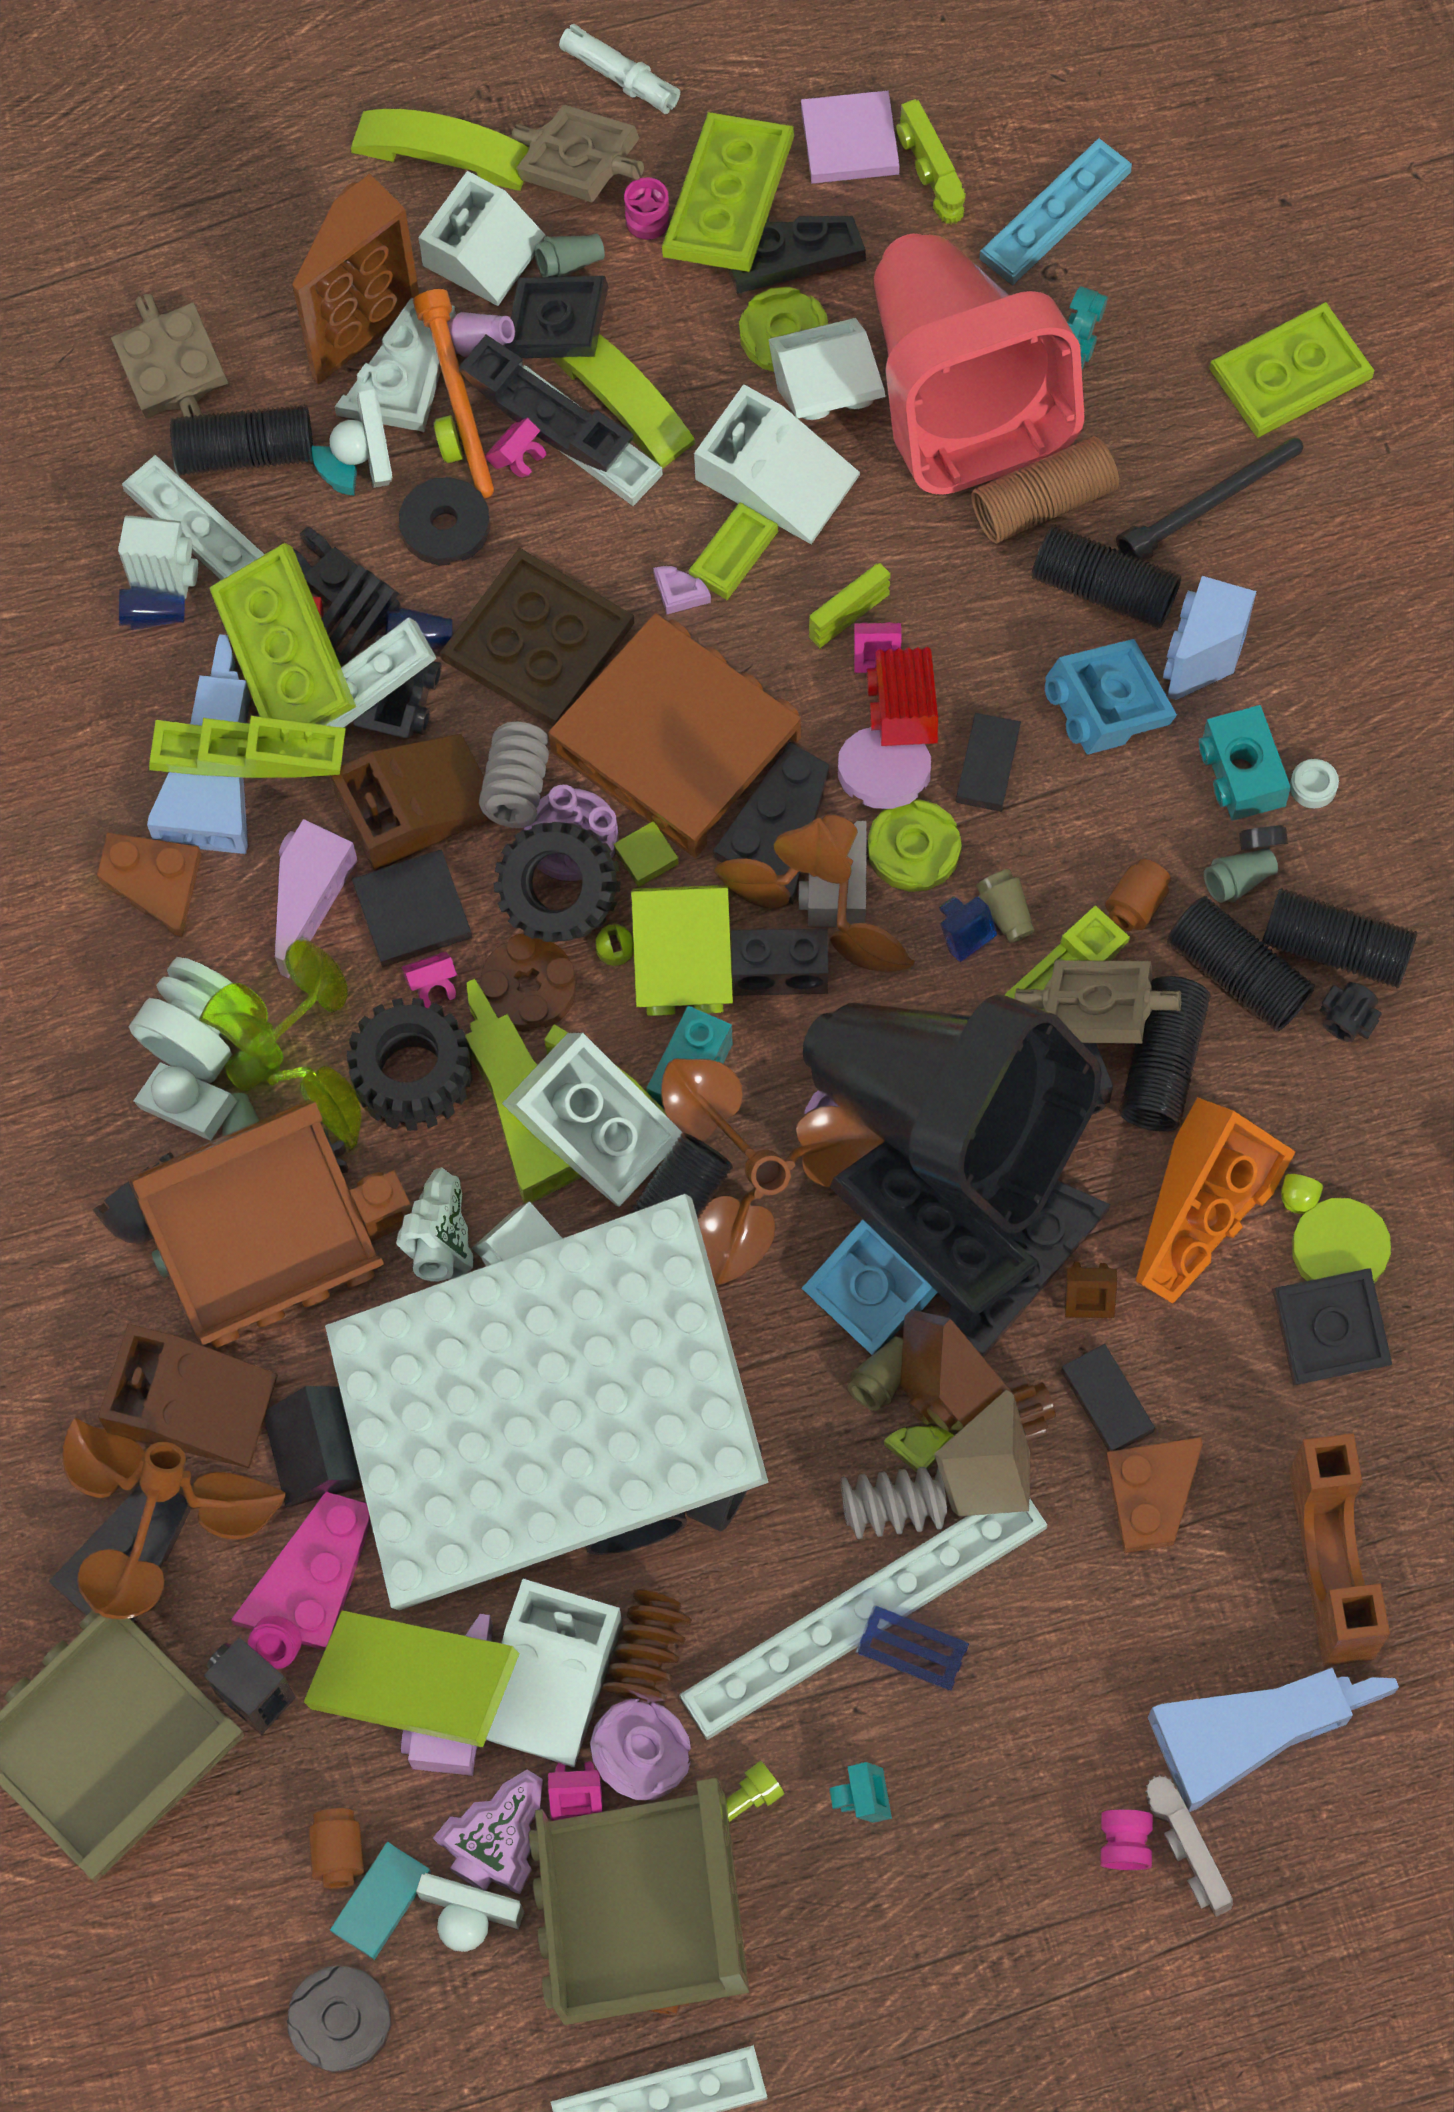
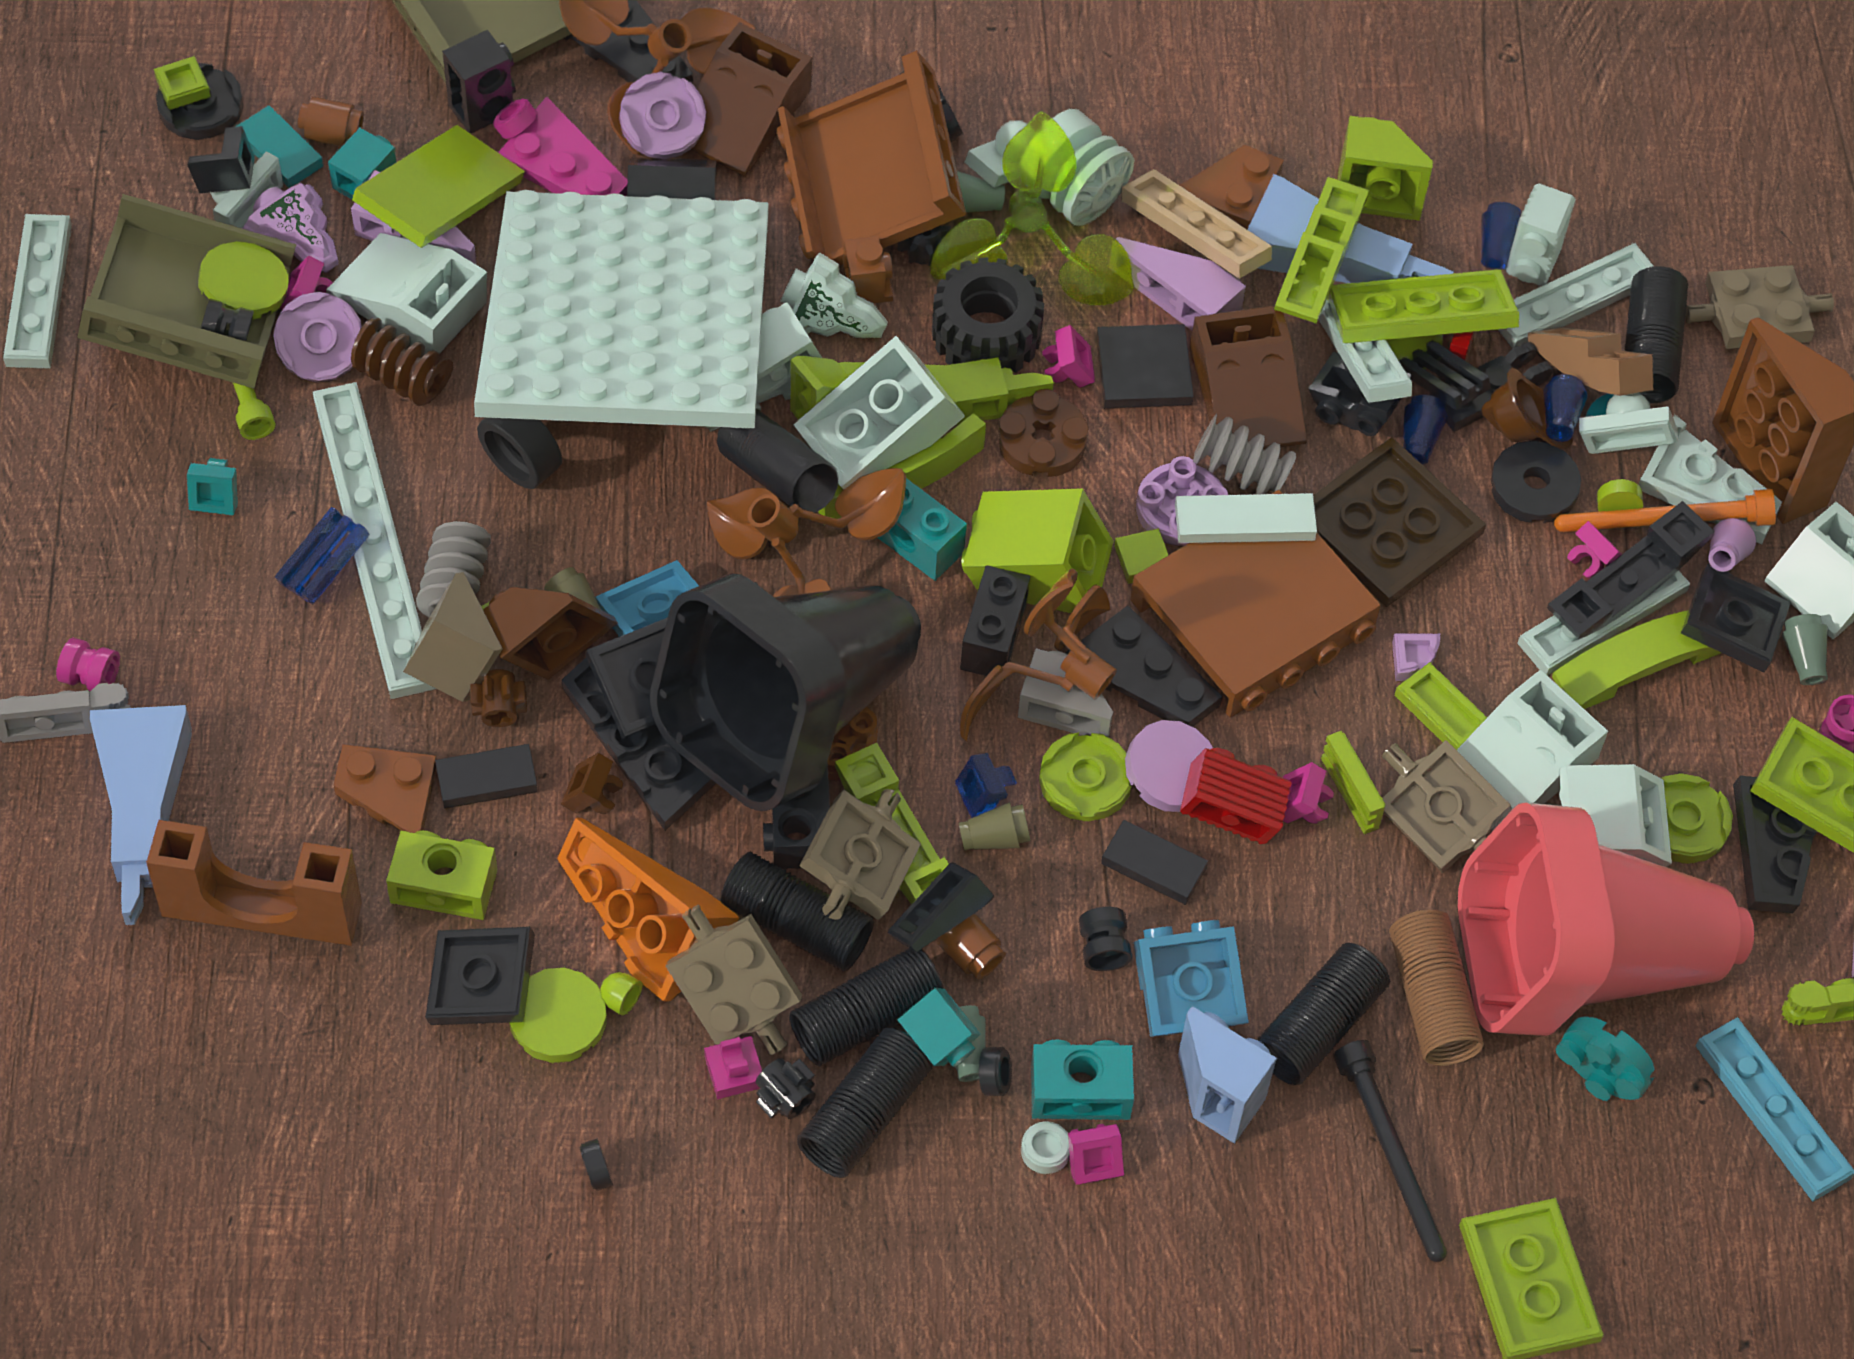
camera: 100 degrees right, 10 degrees down
(110, 727) = (1386, 164): none -> lime slope
(232, 884) = (1197, 223): none -> tan plate
(239, 1471) = (662, 115): none -> lavender tile
(299, 481) = (1595, 359): none -> medium nougat slope
(331, 2038) = (182, 82): none -> lime tile
(363, 500) = (1563, 405): none -> clear blue cone
(376, 533) = (1519, 411): none -> reddish brown piece
(390, 1786) = (358, 160): none -> teal brick
(458, 1925) = (227, 169): none -> black panel
(517, 889) = (1124, 457): black tyre -> none
(563, 1194) = (812, 381): none -> lime slope
(599, 749) = (1245, 518): none -> light aqua tile
(601, 1850) = (244, 277): none -> lime tile
(677, 1838) = (218, 317): none -> black wheel
(852, 519) = (1442, 803): none -> dark tan plate
(1092, 779) = (1105, 940): none -> black wheel
(1125, 928) = (941, 907): none -> black slope
(1242, 1368) = (459, 893): none -> lime brick
(1256, 880) = (940, 1028): none -> teal brick
(1271, 1077) = (734, 980): none -> dark tan plate
(1313, 734) = (1095, 1154): none -> dark pink tile
(1335, 1071) = (733, 1066): none -> dark pink tile

